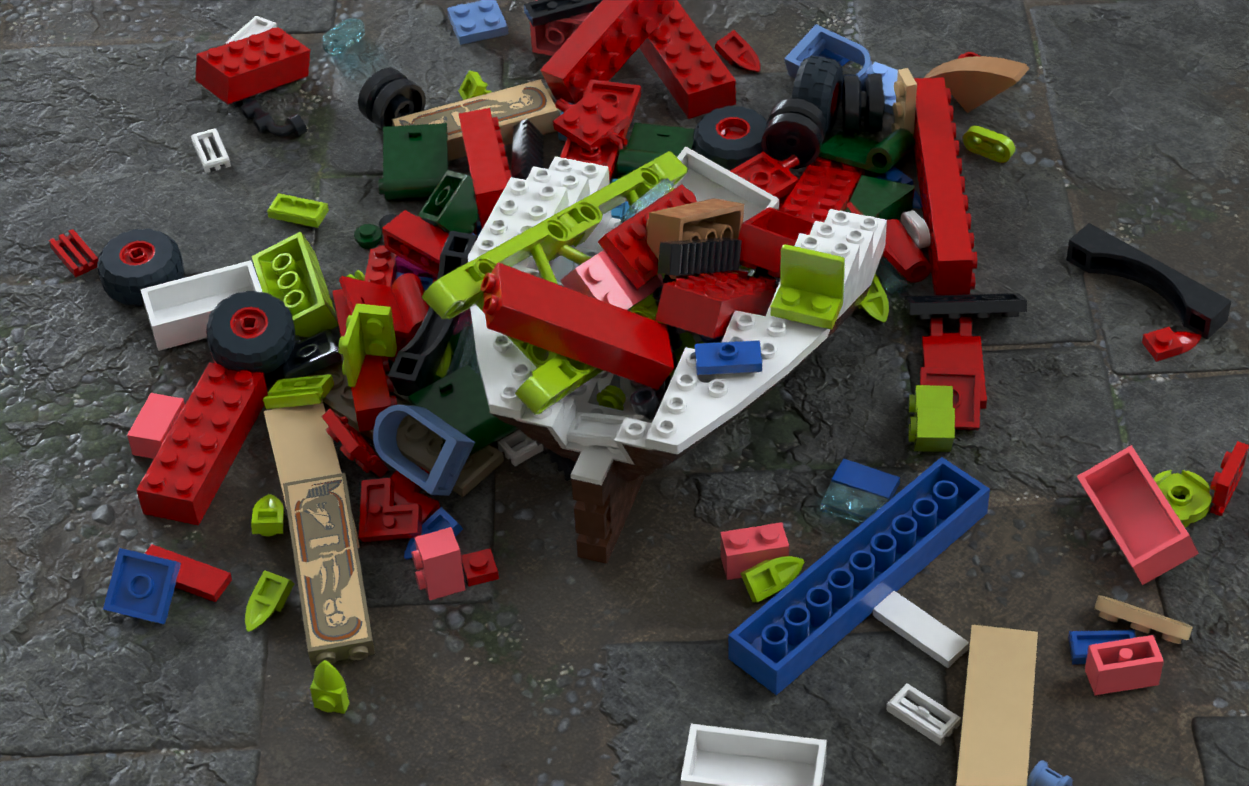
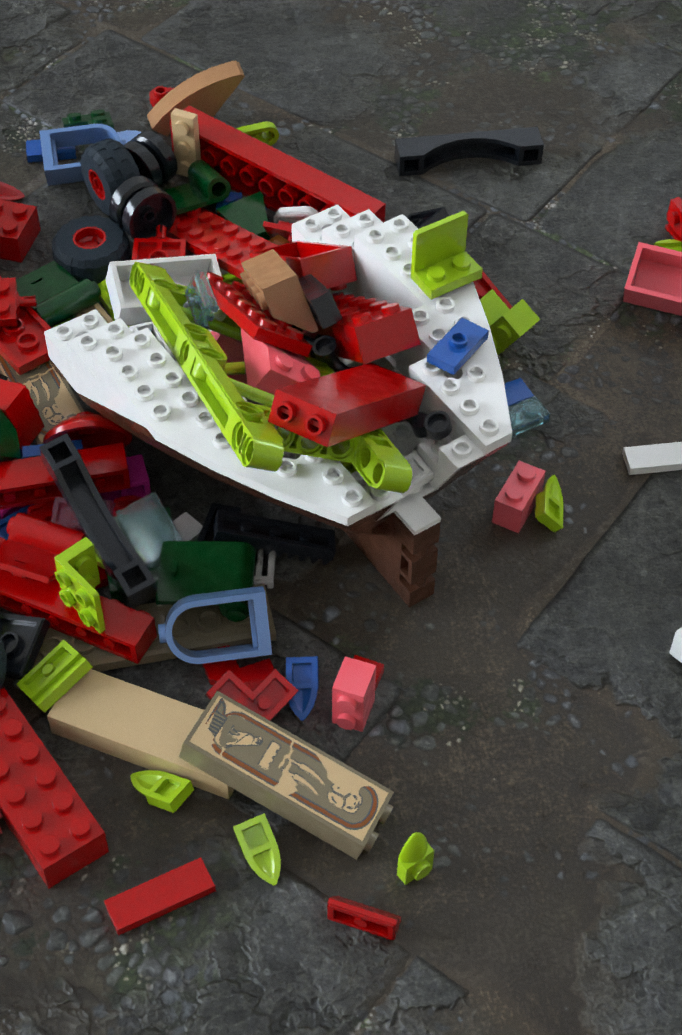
camera: 55 degrees left, 5 degrees up
(142, 586) = (157, 936): blue hinge -> none
(262, 694) = (363, 917): none -> red slope
(353, 443) = (143, 673): red plate -> none
(857, 575) = (602, 458): blue brick -> none
(881, 49) = (95, 117): none -> dark green plate
(1166, 343) = (528, 181): red plate -> none

